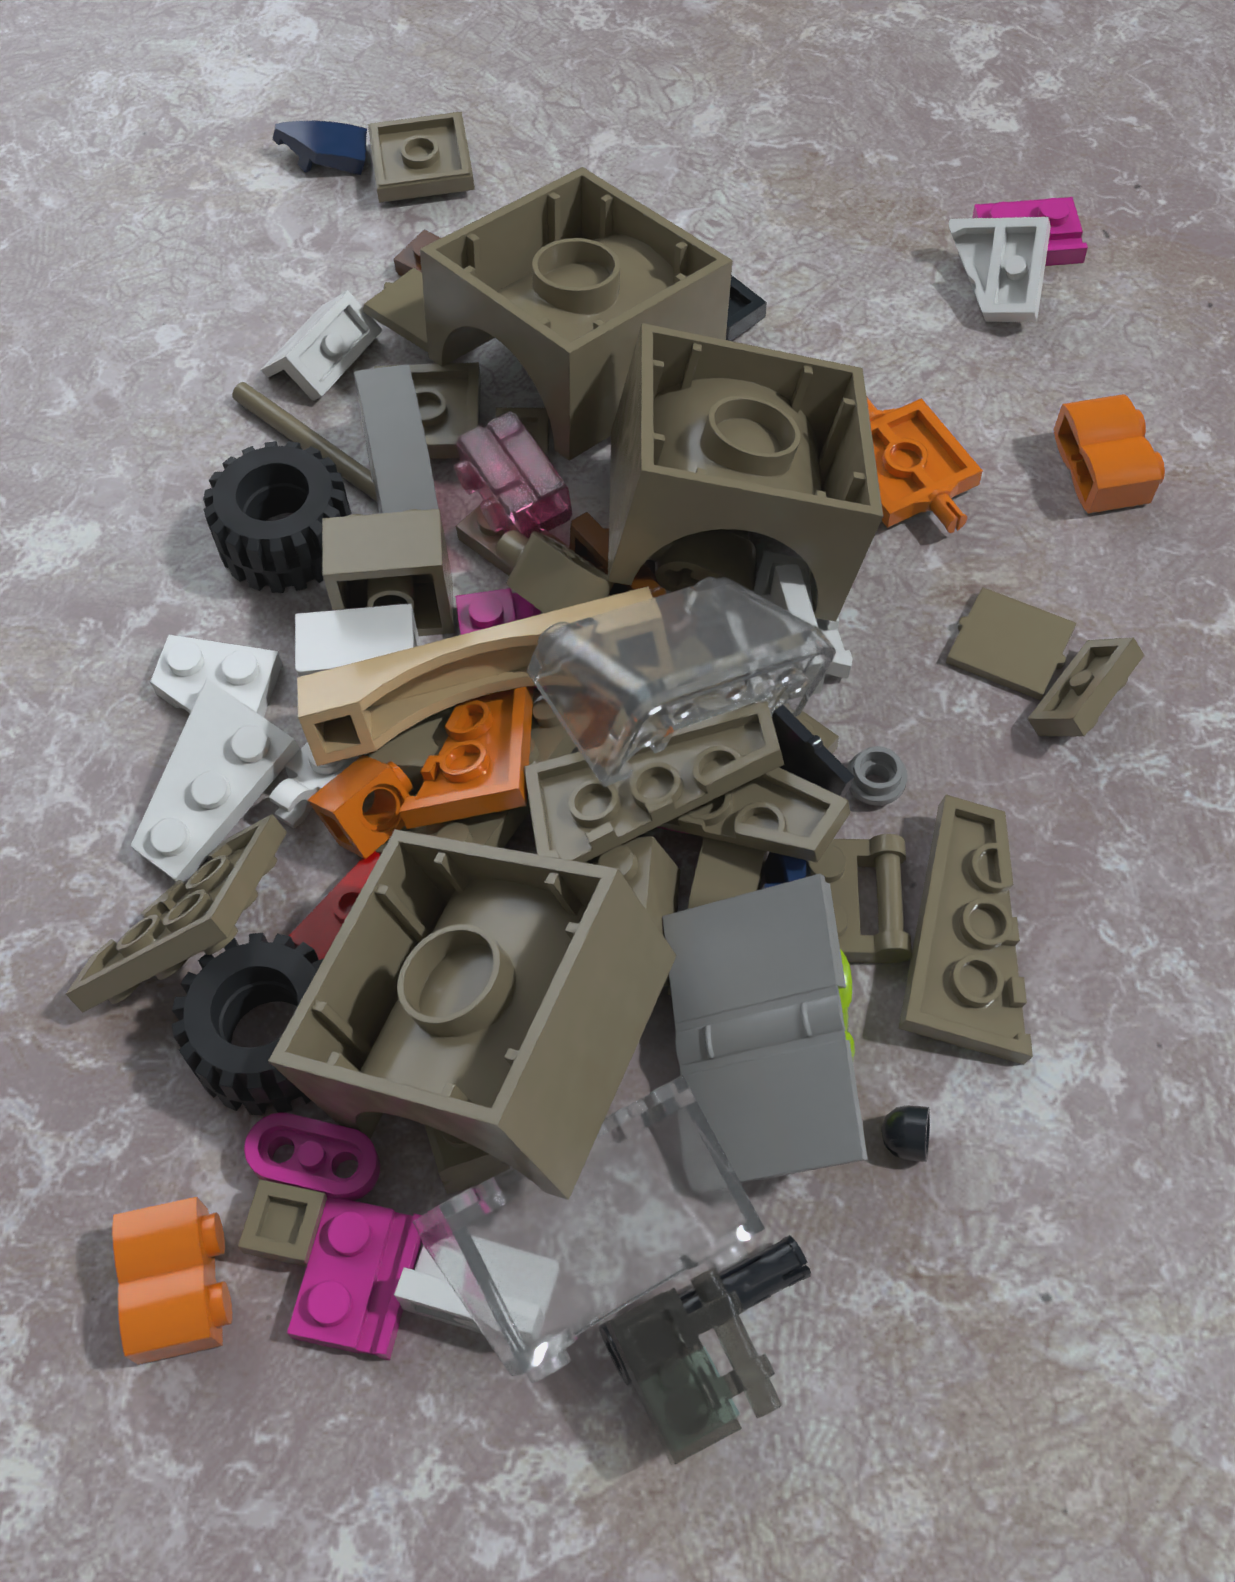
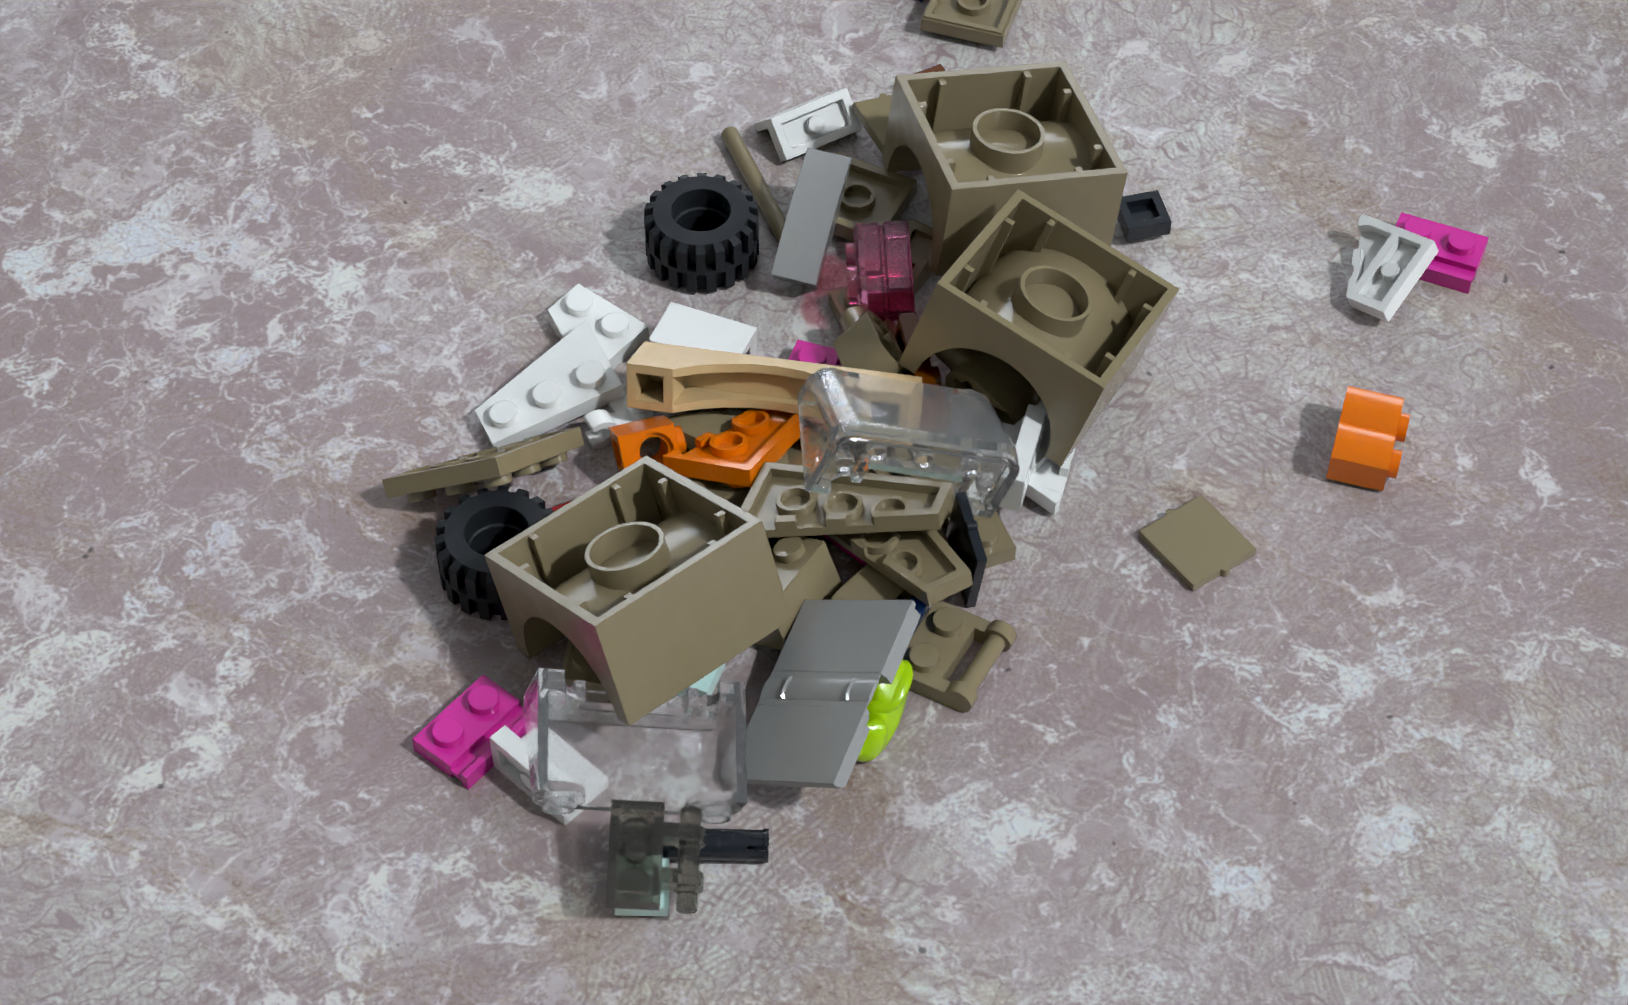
camera: 25 degrees right, 10 degrees down
(169, 1281) = (356, 676): orange brick -> none
(282, 1223) = (444, 676): dark tan plate -> none
(316, 1155) = (491, 649): dark pink plate -> none
(390, 562) = (757, 292): dark tan brick -> none
(878, 762) = (1026, 575): light grey plate -> none
(907, 1132) = (893, 809): black hinge -> none
(919, 465) = (1201, 381): orange plate -> none
(964, 955) = (1013, 716): dark tan wing -> none
(1086, 687) = (1239, 586): dark tan plate -> none

